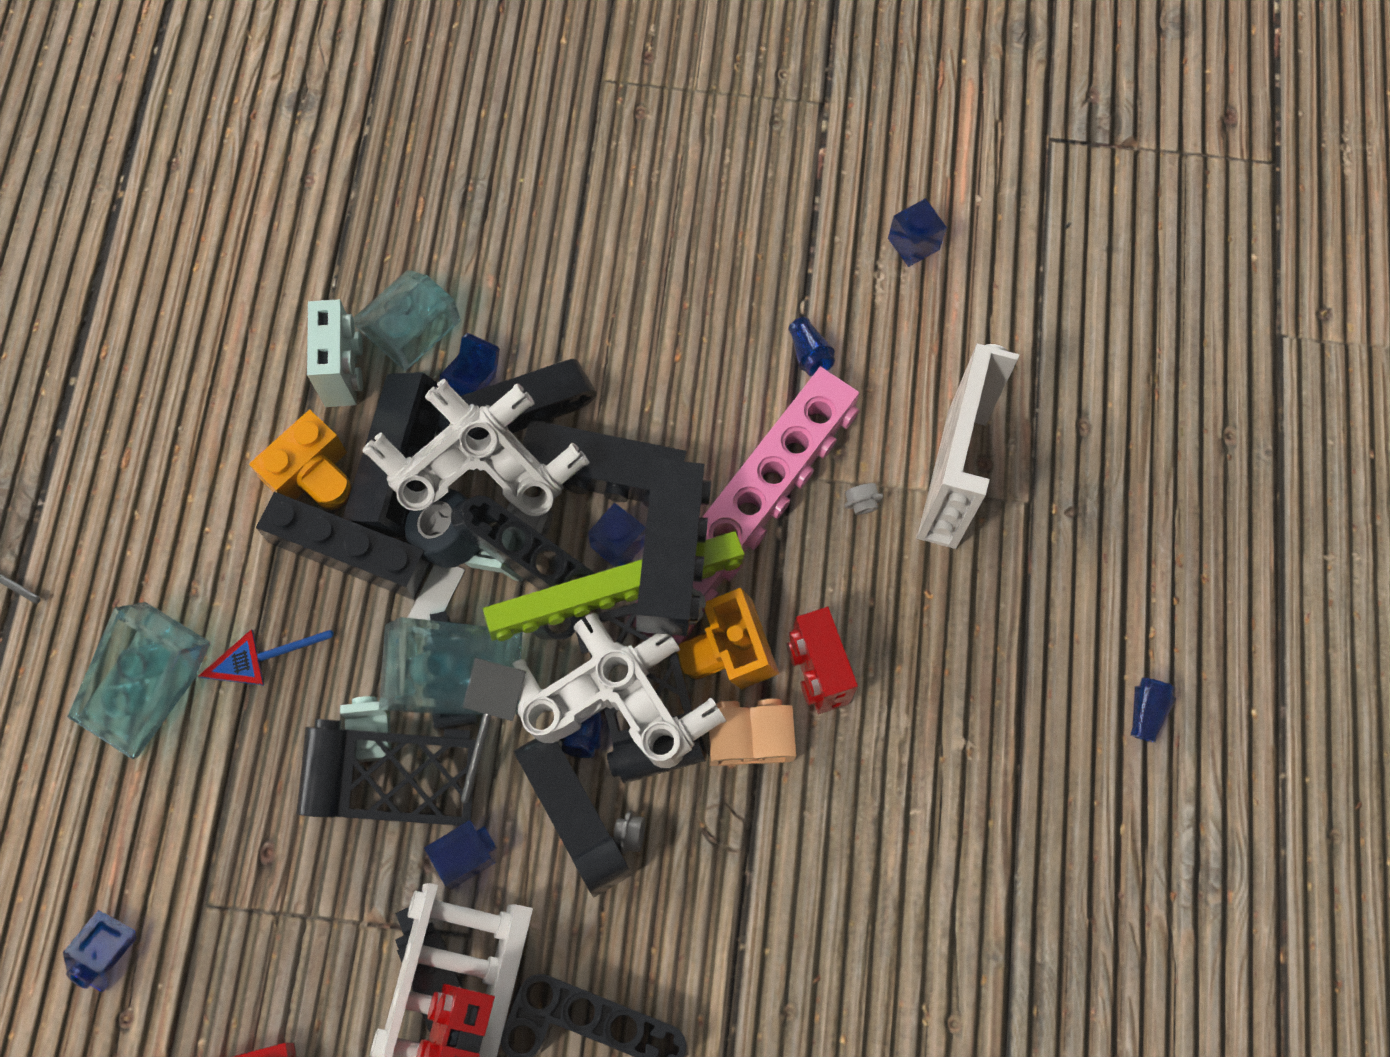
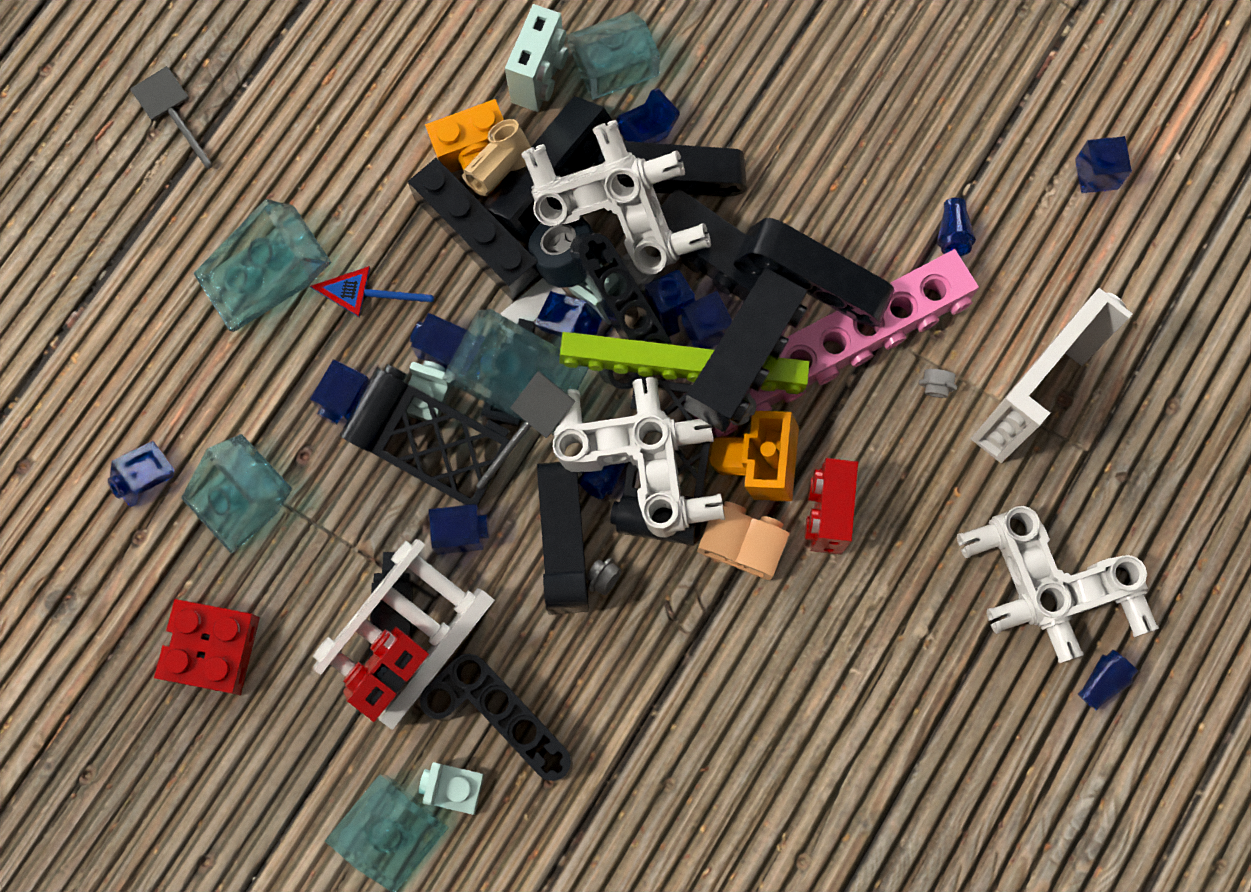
camera: 30 degrees right, 5 degrees up
(211, 923) = (235, 491): none -> clear light blue slope
(277, 771) = (338, 392): none -> clear blue brick
(338, 466) = (498, 157): none -> tan piece
(355, 673) = (436, 340): none -> clear blue brick
(475, 590) = (567, 314): none -> clear blue bracket
(569, 530) = (667, 298): none -> clear blue bracket
(699, 438) = (815, 268): none -> black beam
(1038, 637) = (1036, 572): none -> white pin

